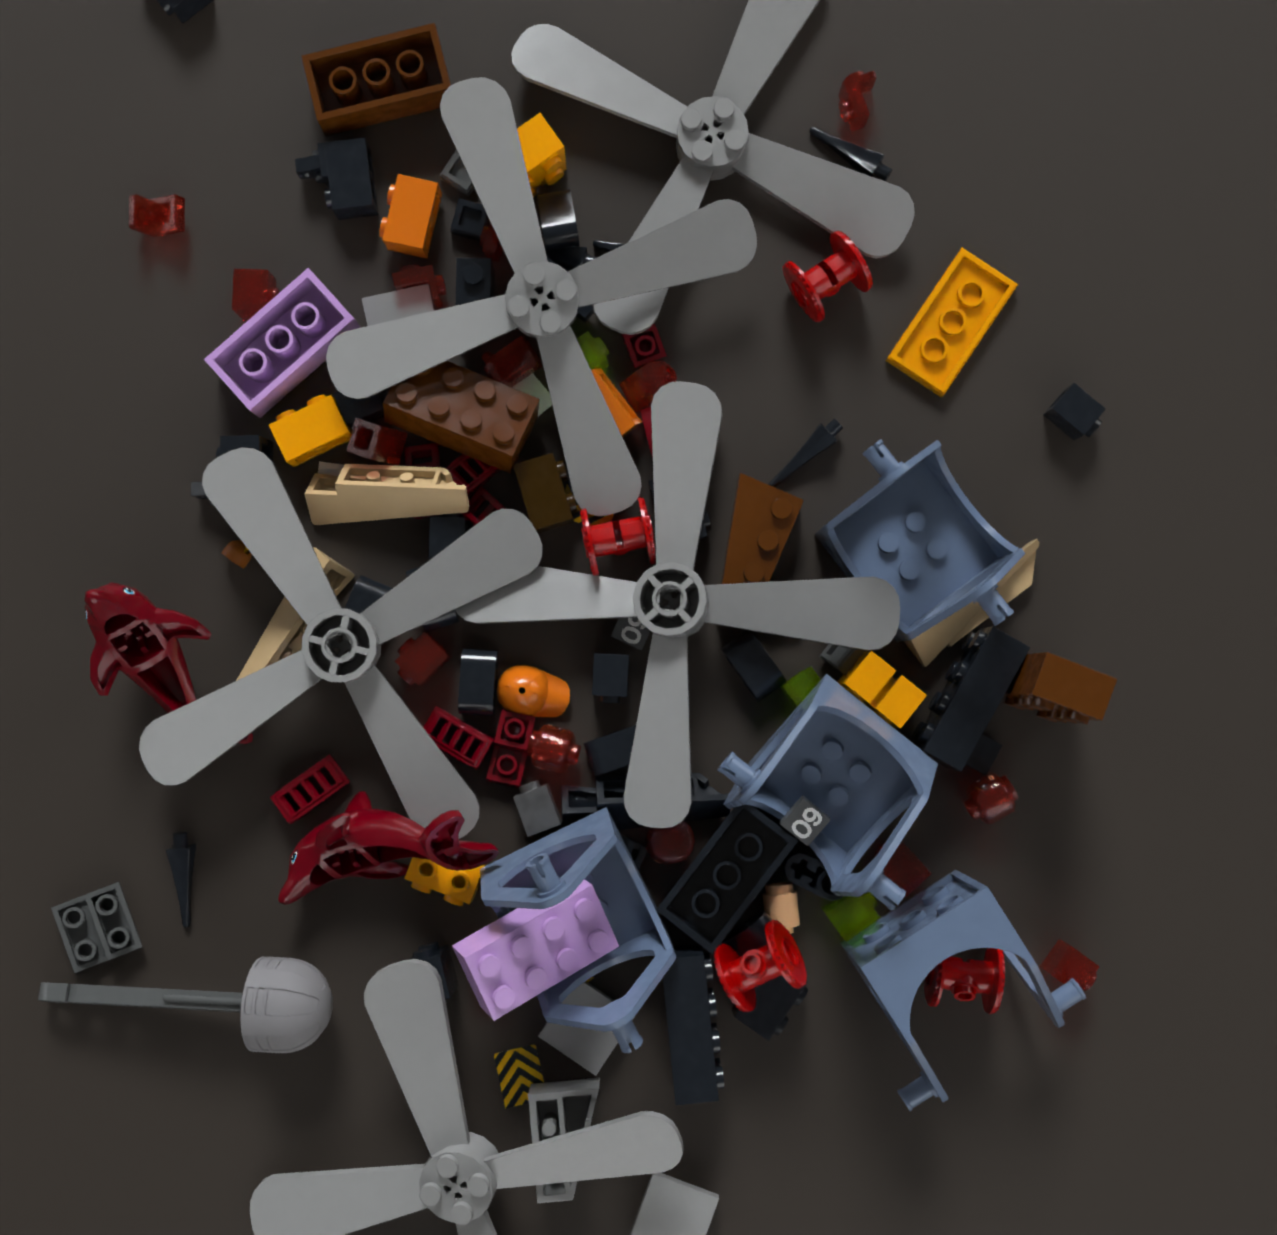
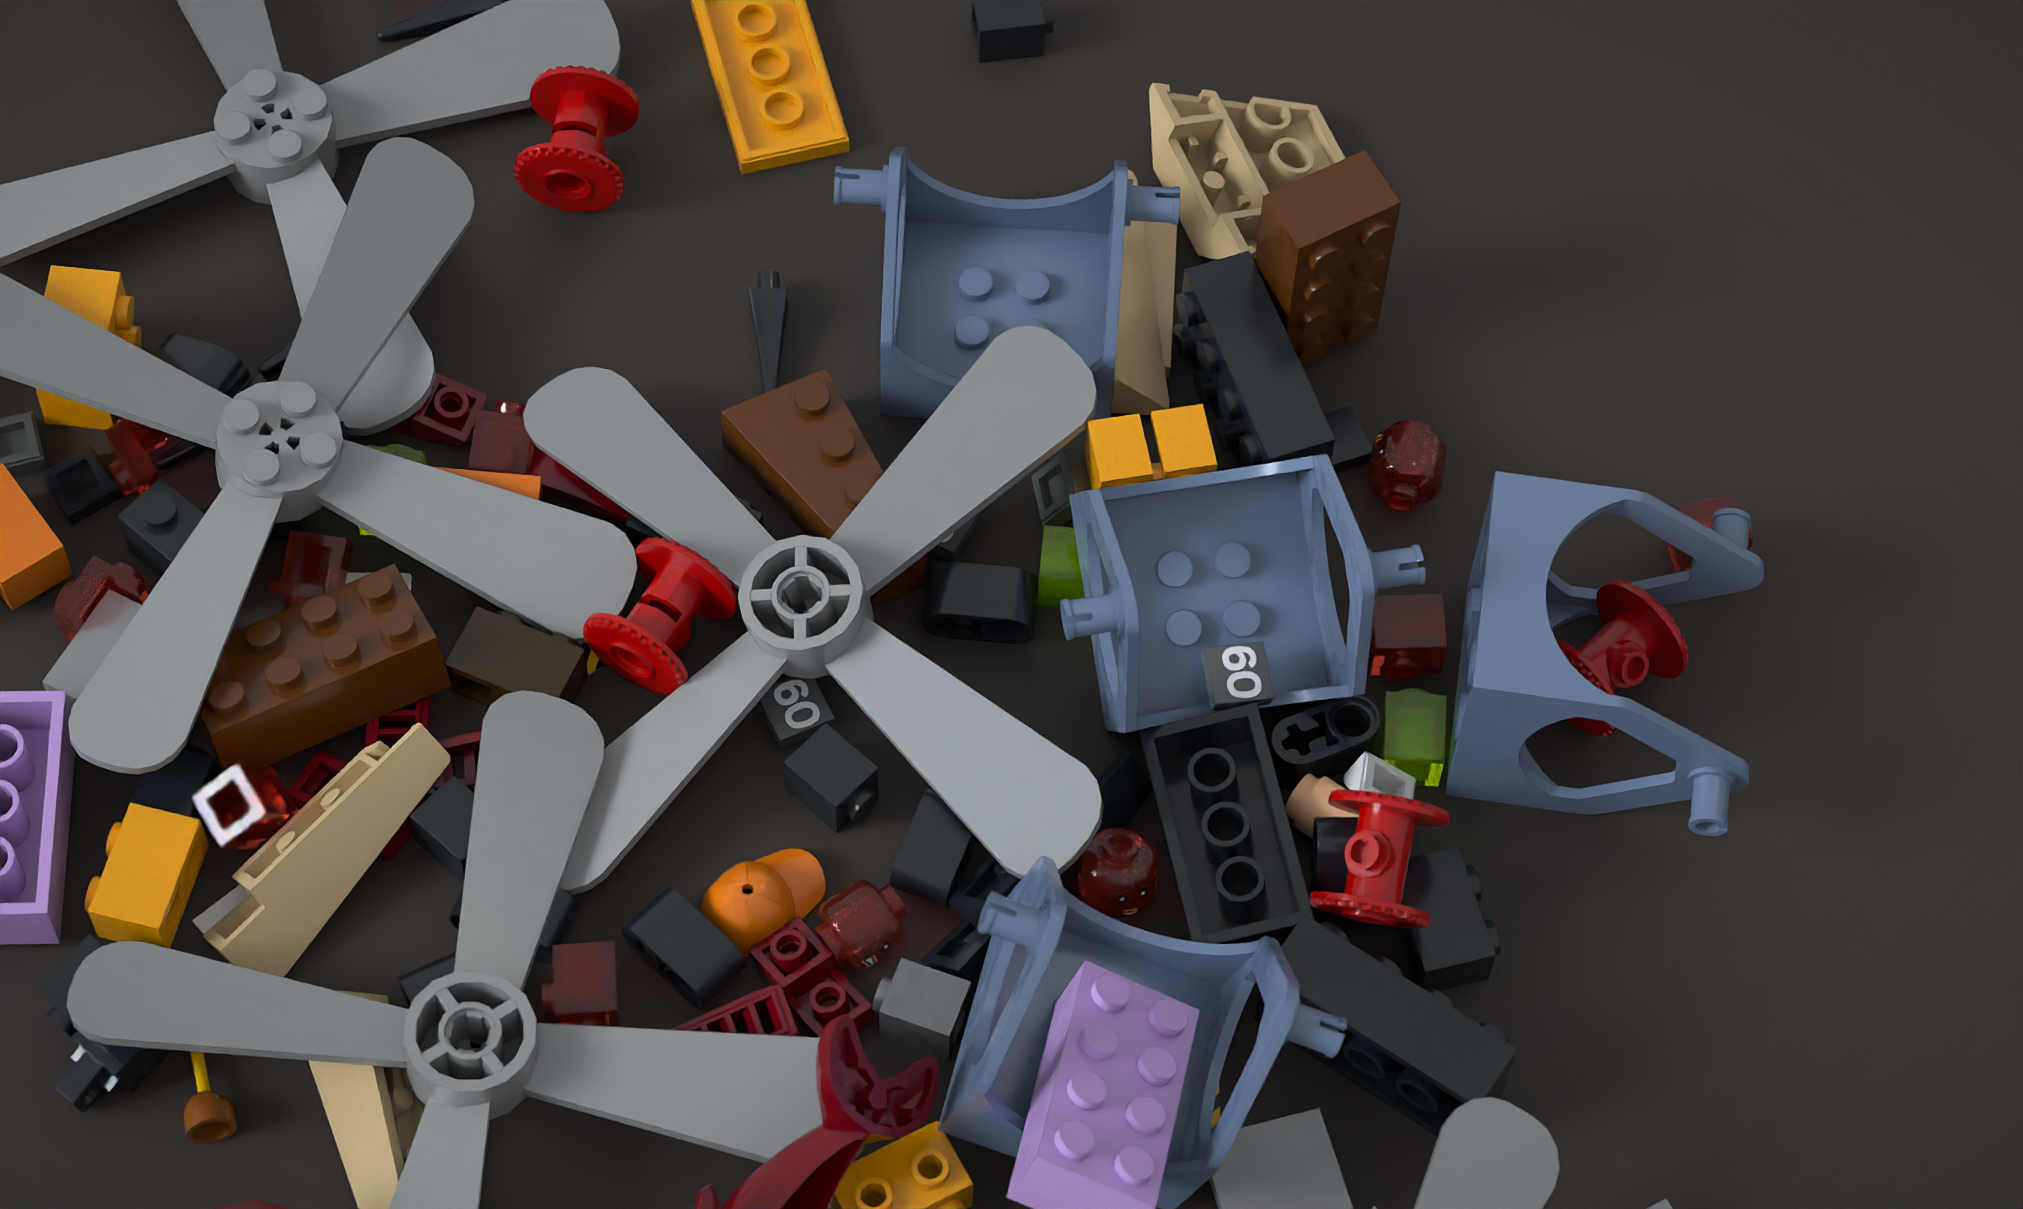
camera: 50 degrees left, 25 degrees down
(810, 922) = (1376, 775): none -> white slope
(1087, 596) = (1230, 158): none -> tan wedge

